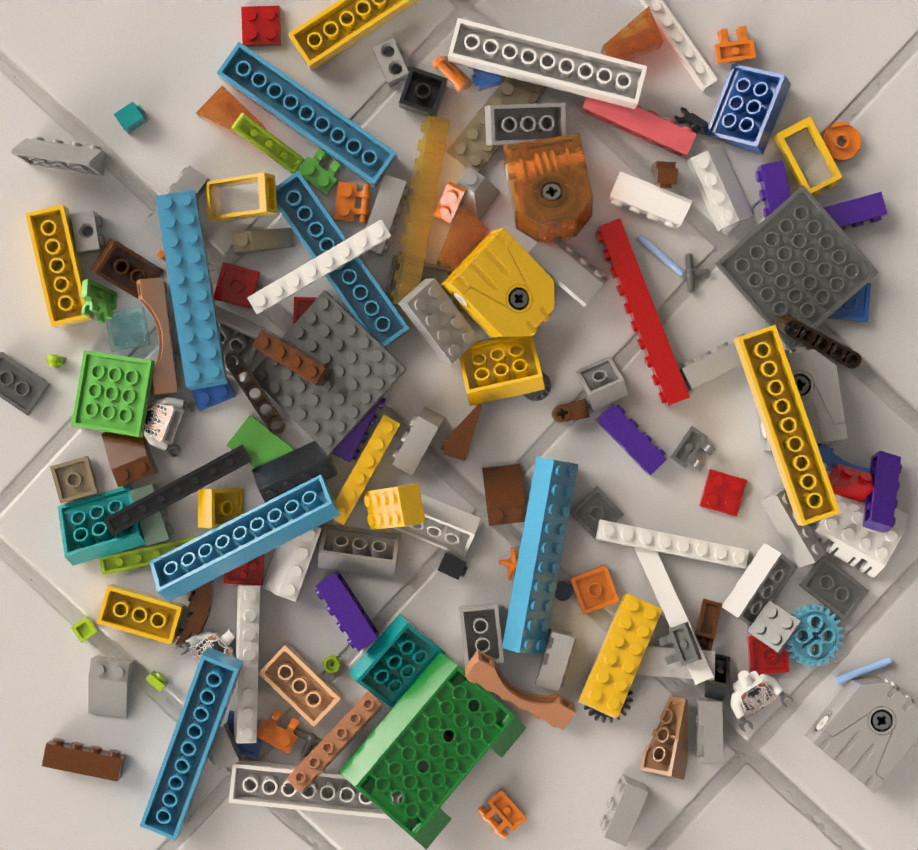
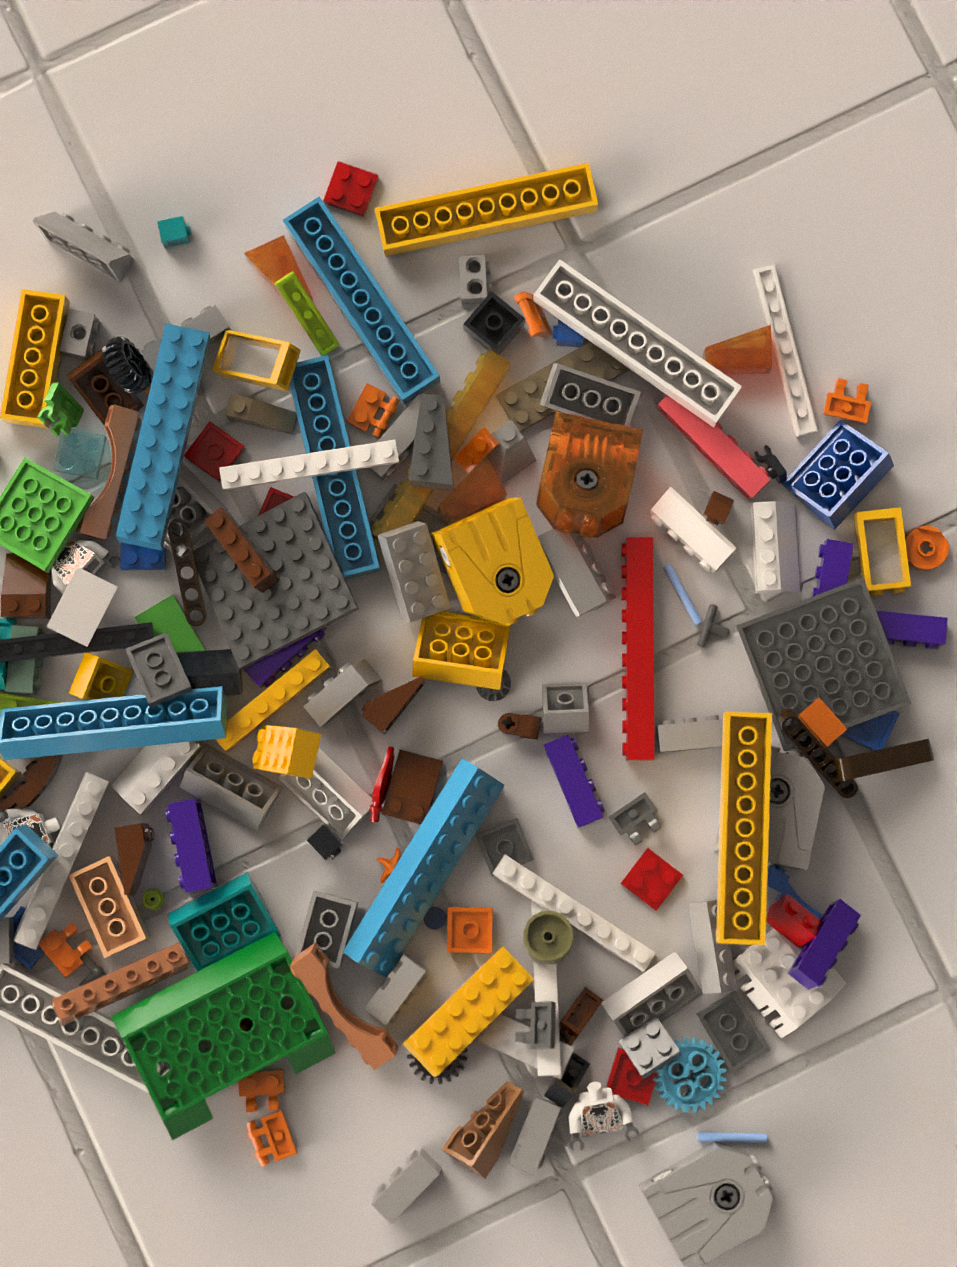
camera: 25 degrees right, 5 degrees down
(136, 243) = (126, 365): none -> black gear
(181, 454) = (82, 606): none -> white tile
(247, 574) = (103, 764): red plate -> none
(264, 481) = (158, 669): none -> dark grey plate
(301, 631) = (133, 852): none -> reddish brown slope
(316, 175) = (347, 368): bright green plate -> none
(415, 217) = (431, 451): none -> dark grey wedge
(480, 503) = (382, 785): none -> red animal
(482, 772) = (260, 1084): none -> orange plate
(667, 562) = (548, 951): none -> olive wheel
(813, 314) = (823, 722): none -> orange sticker
(873, 326) = (884, 760): none -> dark brown beam

